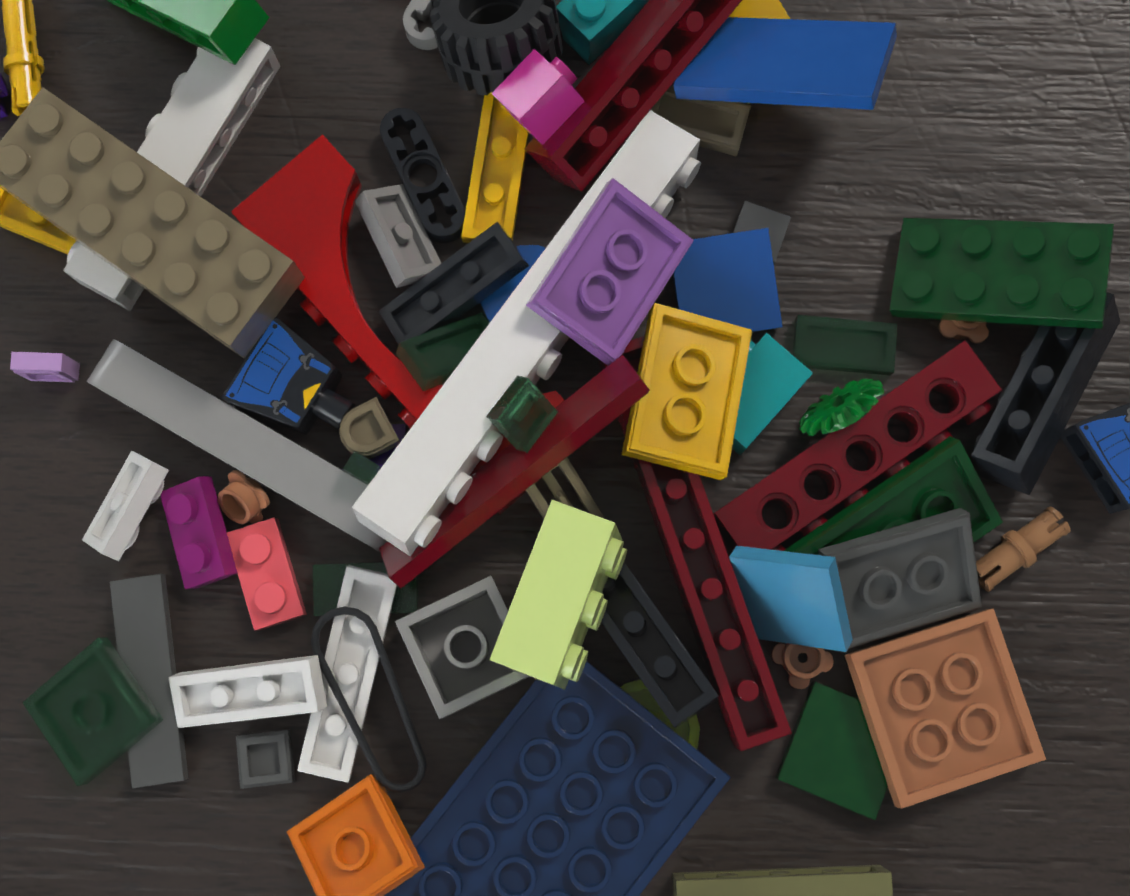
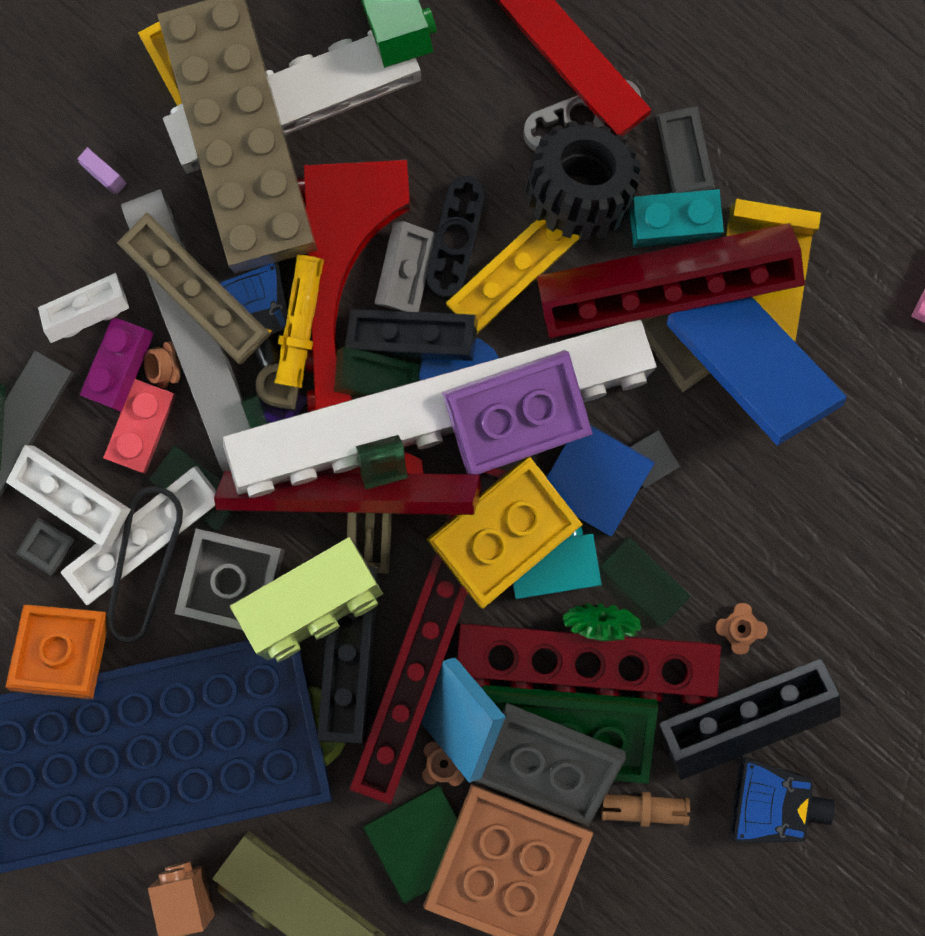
camera: 40 degrees right, 5 degrees up
(215, 400) = (193, 288): none -> dark tan tile
(348, 369) = (299, 321): none -> yellow pin
(539, 95) = (570, 252): dark pink brick -> none
(1003, 272) = (785, 619): dark green plate -> none

